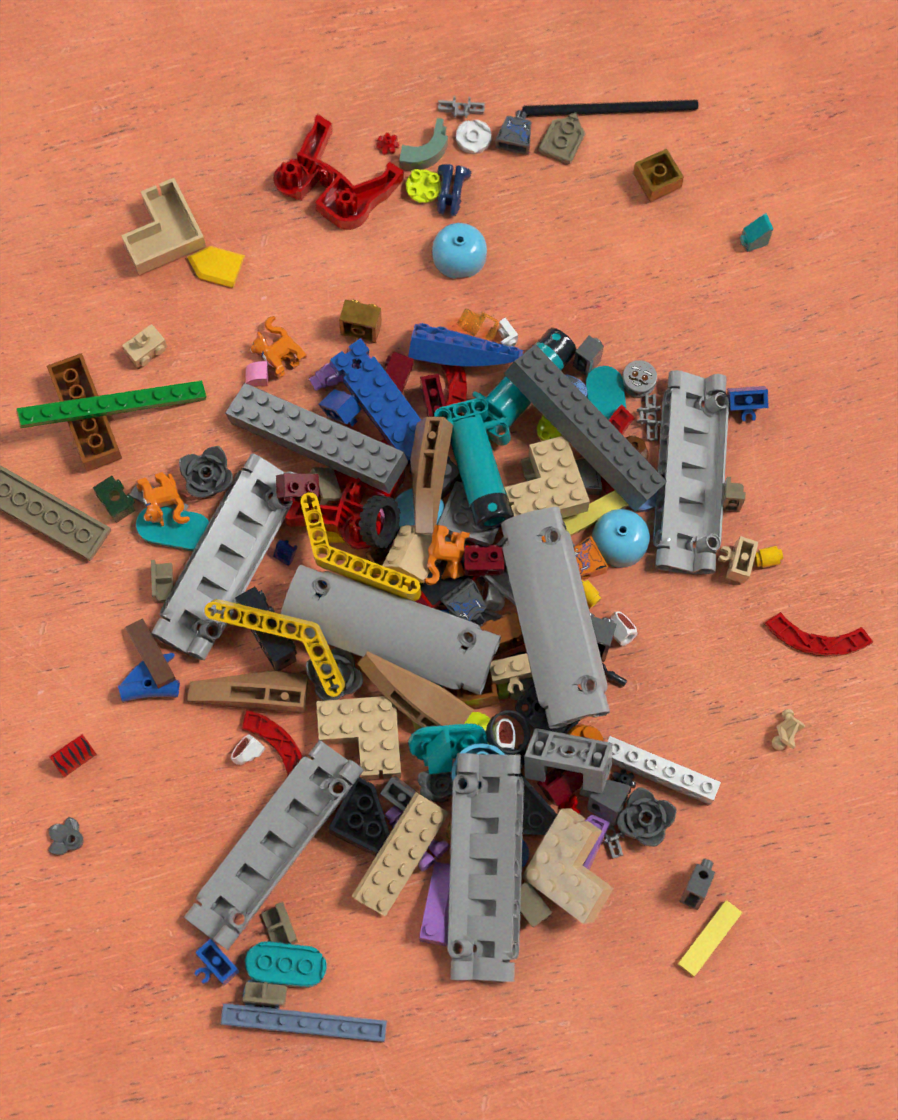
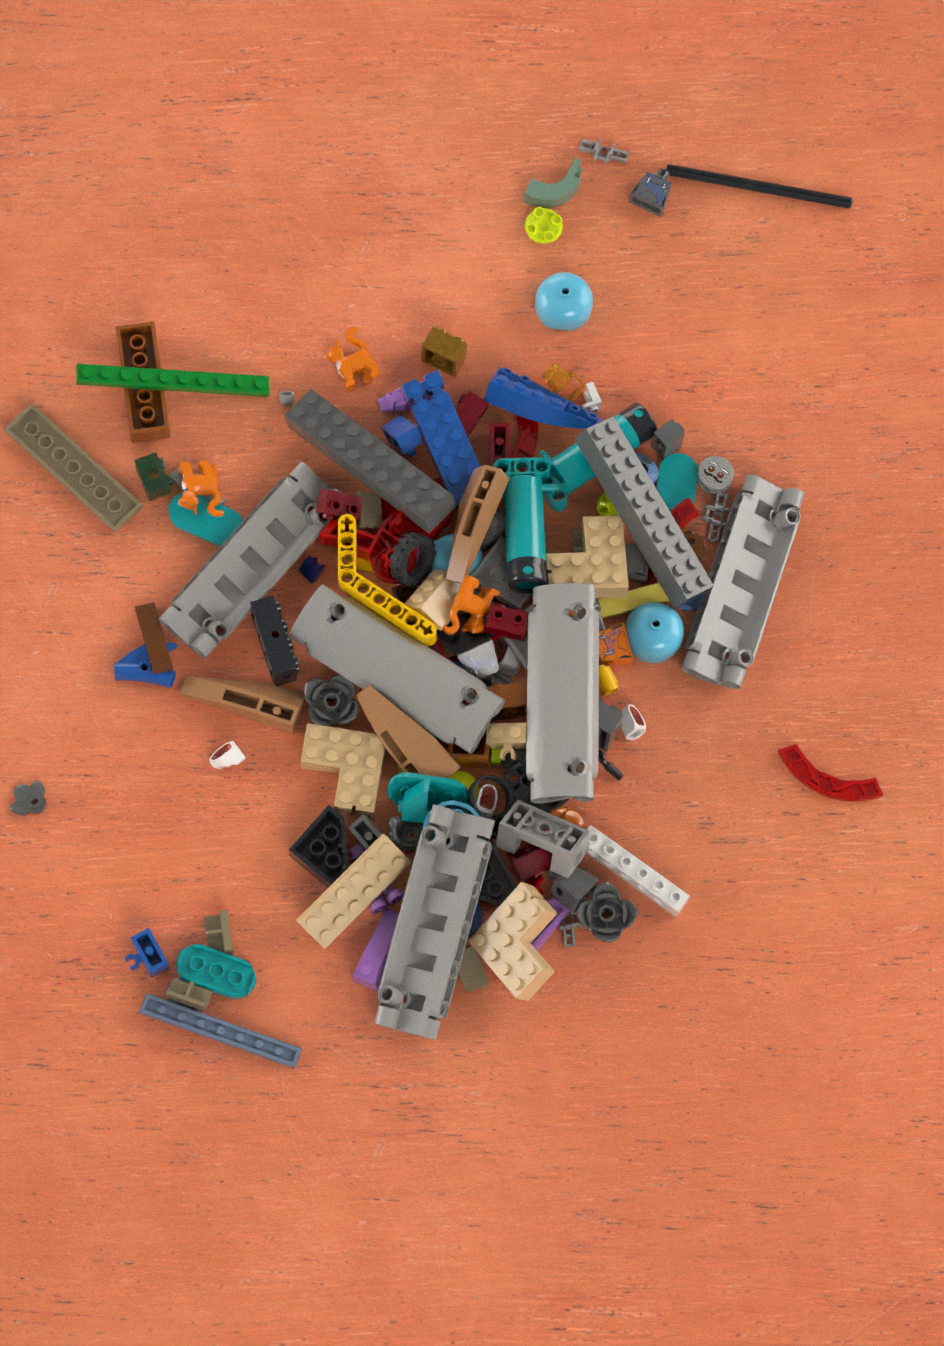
camera: 10 degrees right, 0 degrees up
(73, 755) = (54, 721): red brick -> none
(144, 346) = (219, 328): tan brick -> none
(161, 581) = (181, 569): dark tan panel -> none
(169, 235) = (270, 221): tan piece -> none
(212, 461) = (259, 460): dark grey brick -> none
(217, 265) = (312, 261): yellow tile -> none
(223, 397) = (286, 398): none -> light grey hinge
(257, 374) = (326, 382): bright pink brick -> none
(272, 844) = (230, 851): light grey panel -> none
(275, 736) = (266, 763): red tile -> none
(281, 630) = (289, 644): yellow beam -> none
(341, 202) = (454, 224): red animal -> none
(387, 143) = (518, 173): red plant -> none
(446, 172) = (571, 216): dark blue piece -> none
(473, 136) = (608, 185): white tile -> none
(562, 139) = (701, 208): dark tan tile -> none
(624, 778) = (596, 871): black plant -> none
(658, 175) = (789, 268): pearl gold brick -> none
(698, 884) = (641, 990): dark grey torso -> none
(710, 938) = (640, 1045): light yellow tile -> none
(733, 496) = (778, 616): dark tan panel -> none
(740, 559) = (769, 681): tan brick -> none
(748, 399) = (820, 521): blue brick -> none
(757, 233) = (875, 352): teal slope -> none
(768, 557) = (799, 685): yellow brick -> none
(787, 731) = (771, 861): tan piece -> none

